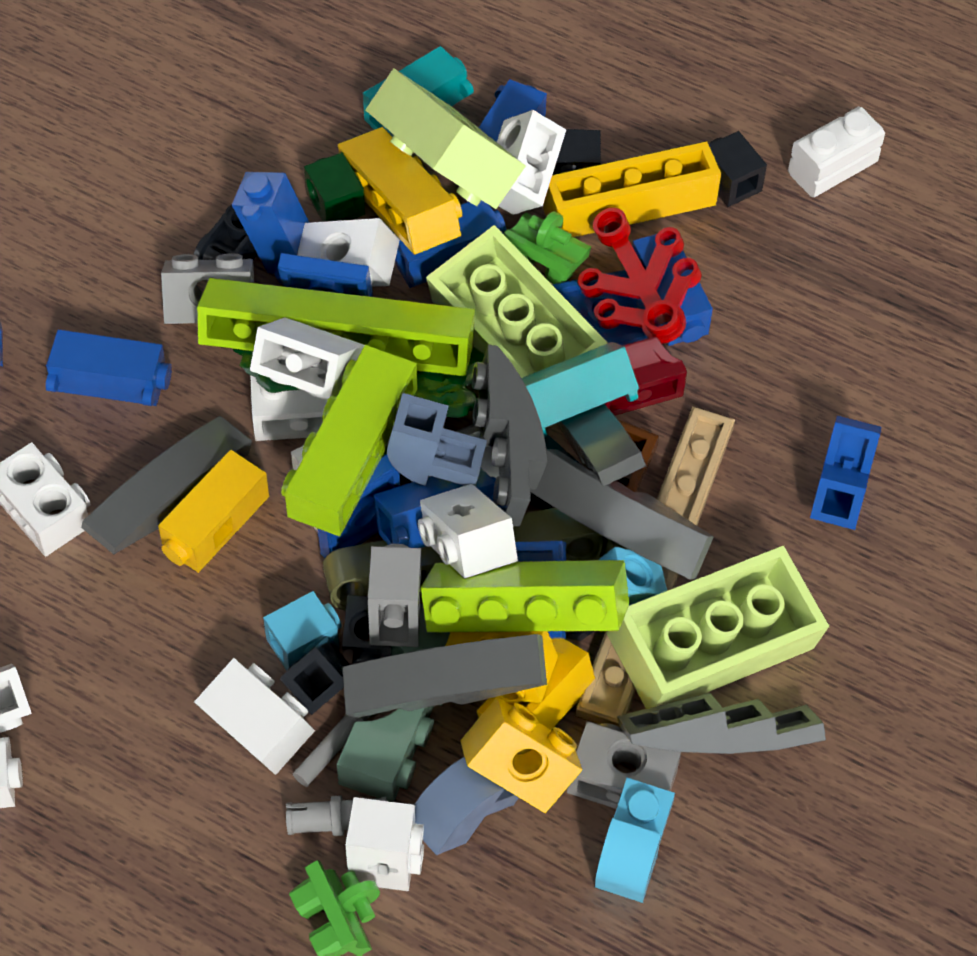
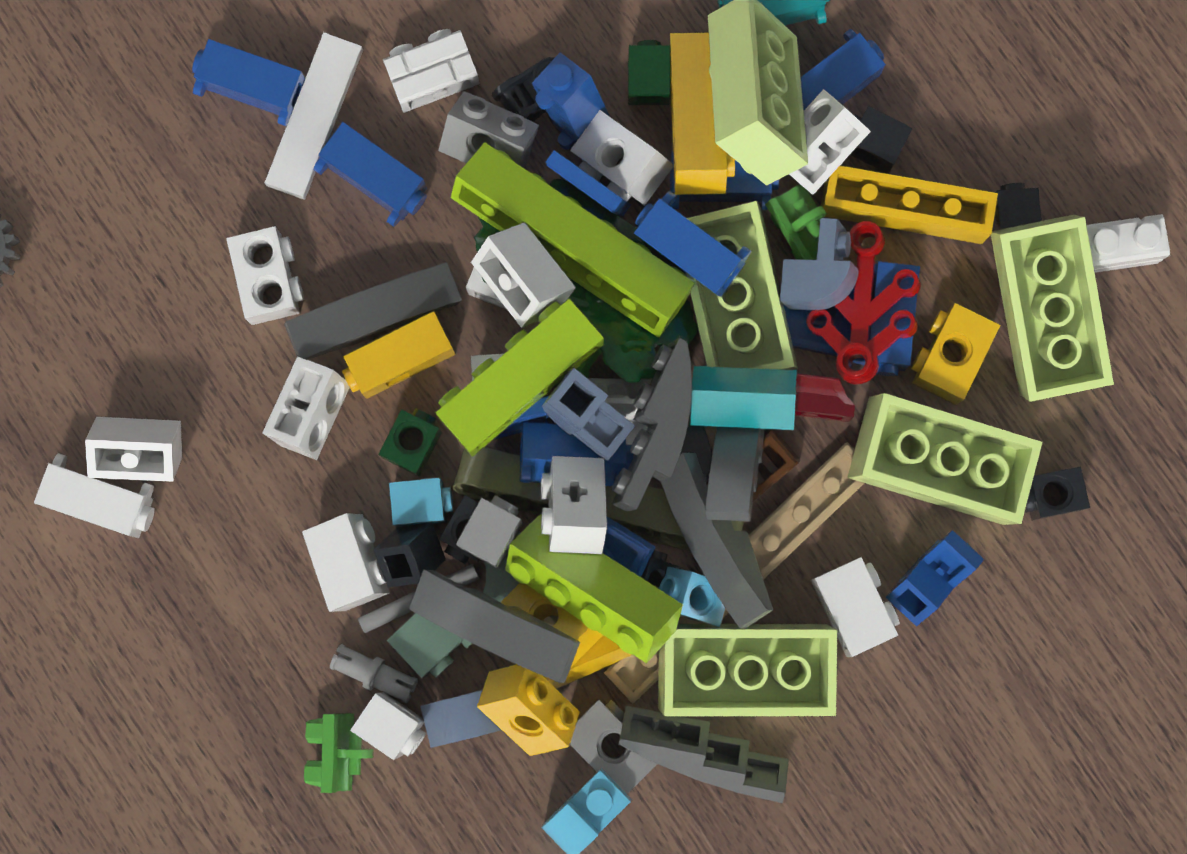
camera: 30 degrees right, 25 degrees up
(23, 352) = (314, 115): none -> white tile
(122, 265) = (431, 69): none -> white brick
(142, 590) = (306, 408): none -> white brick
(261, 598) = (414, 460): none -> dark green brick
(454, 280) = (689, 245): none -> blue brick
(589, 270) = (822, 281): none -> sand blue brick
(747, 293) = (973, 337): none -> yellow brick
(778, 519) = (856, 606): none -> white brick
(791, 372) = (945, 459): none -> yellowish green brick
(810, 210) = (1052, 307): none -> yellowish green brick
(913, 350) = (1072, 492): none -> black brick

